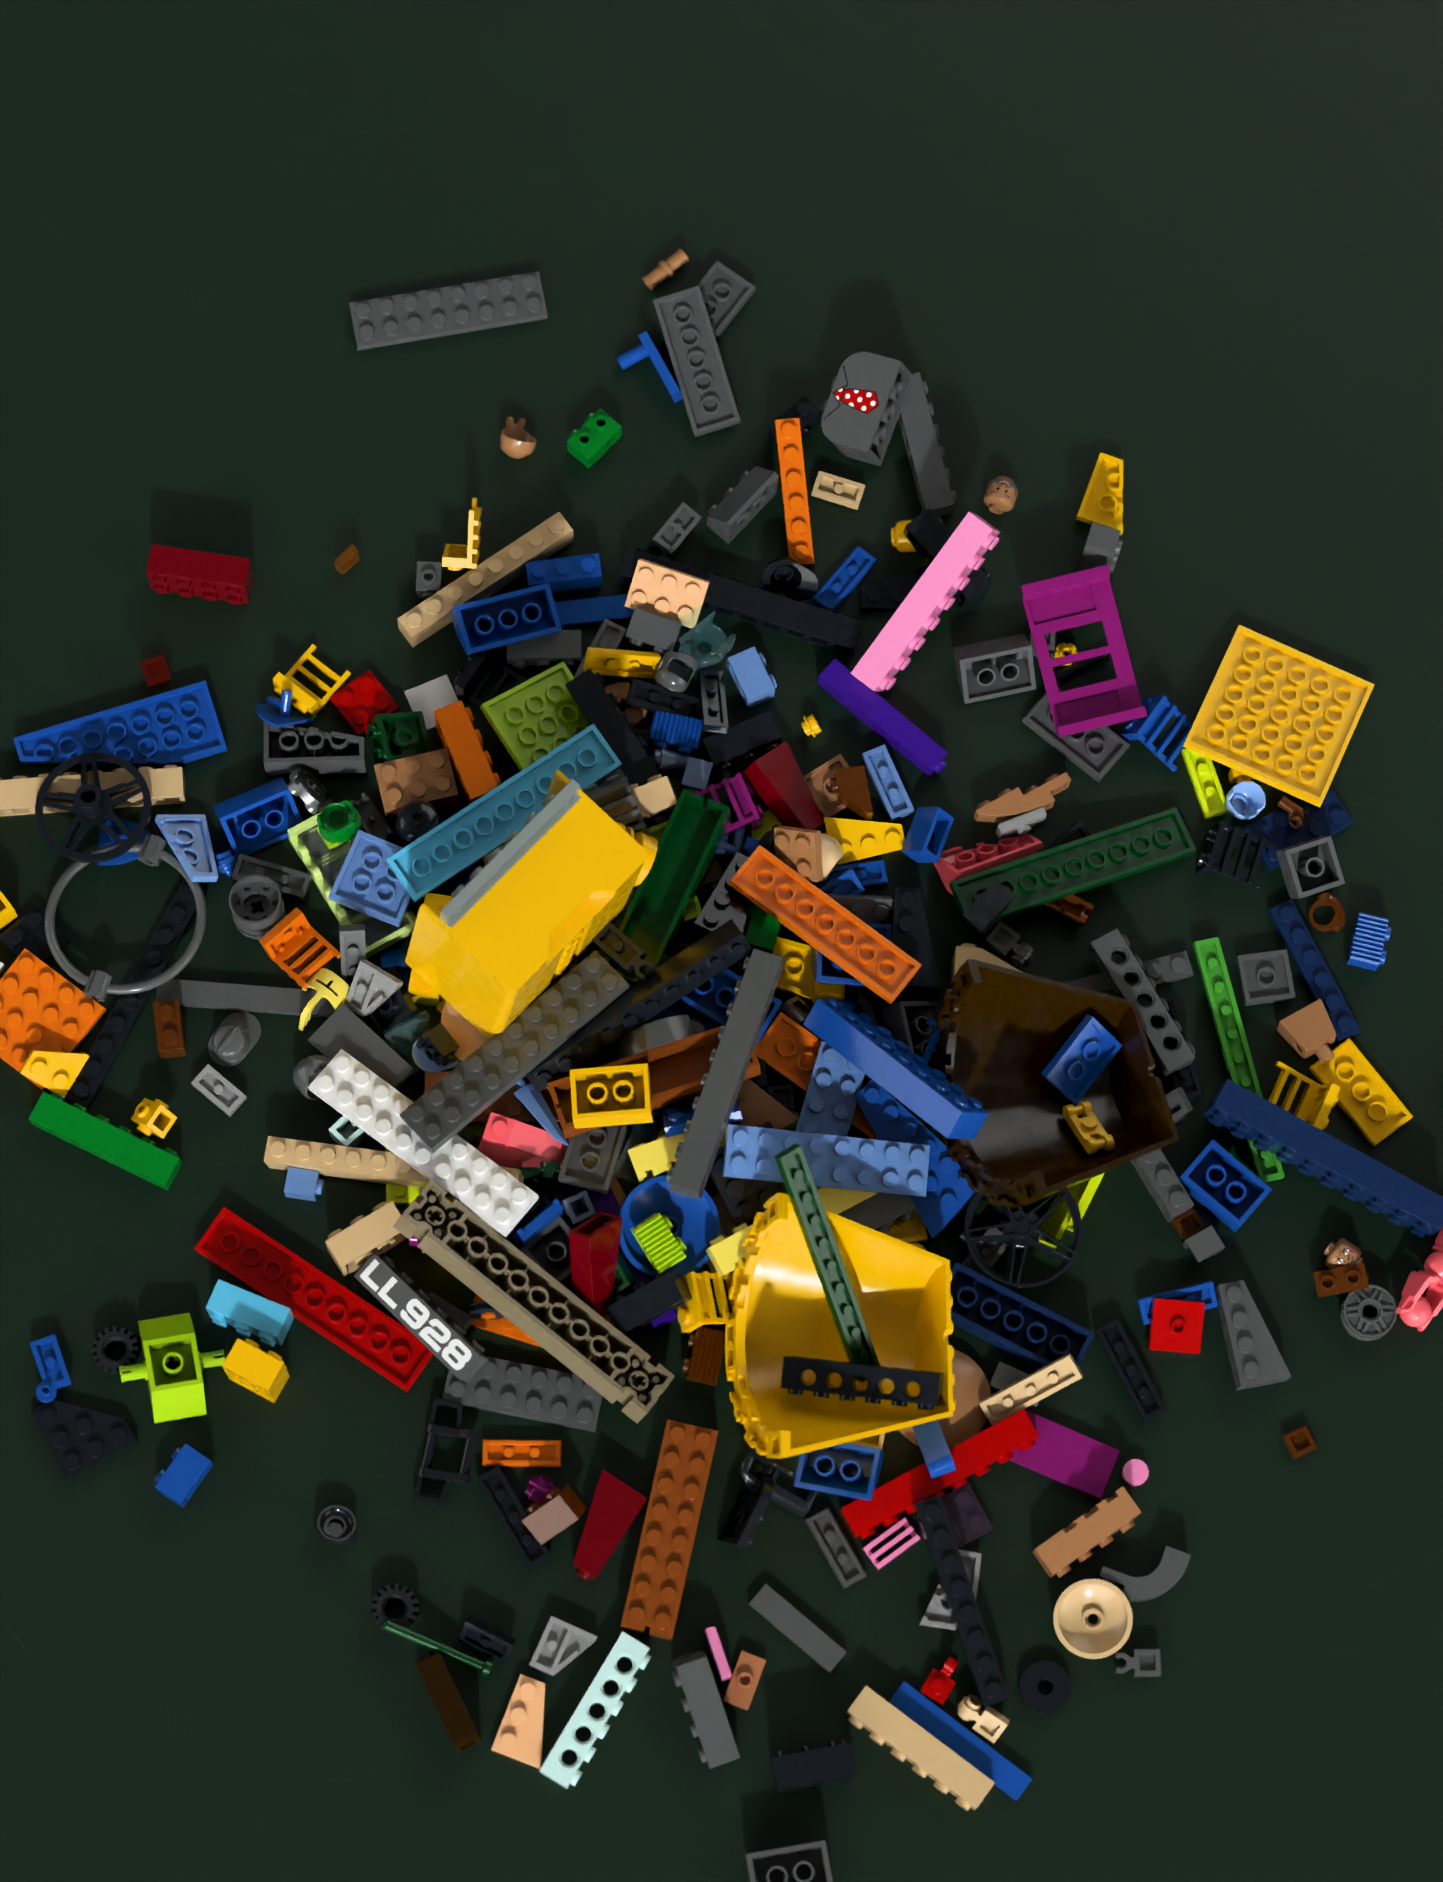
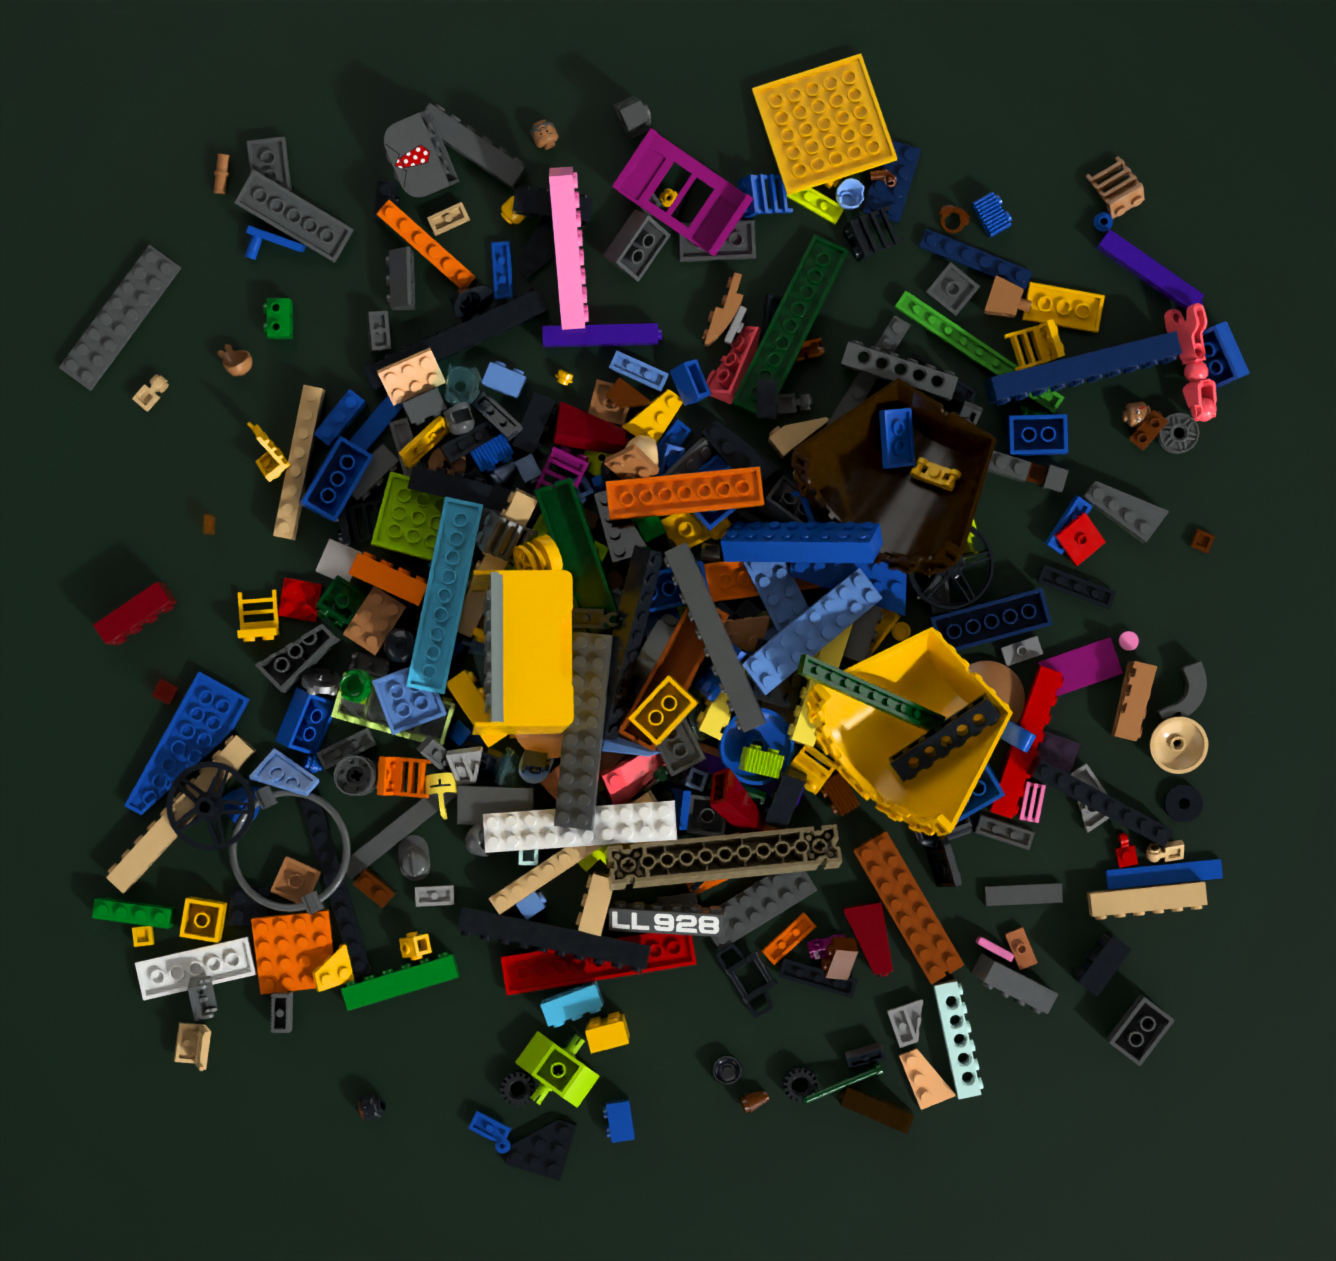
camera: 35 degrees left, 15 degrees up
(102, 951) = (295, 880): none -> medium nougat plate
(279, 712) = (260, 653): blue shield -> none
(293, 1235) = (554, 938): none -> black brick
(333, 1581) = (753, 1100): none -> reddish brown cone
(404, 398) = (146, 396): none -> tan plate
(428, 579) = (267, 493): dark grey brick -> none
(1031, 1389) = (1035, 651): tan plate -> none
(1104, 494) = (603, 79): yellow wing -> none
(1144, 1663) = (1225, 741): dark grey plate -> none
(1310, 867) = (922, 201): dark grey brick -> none

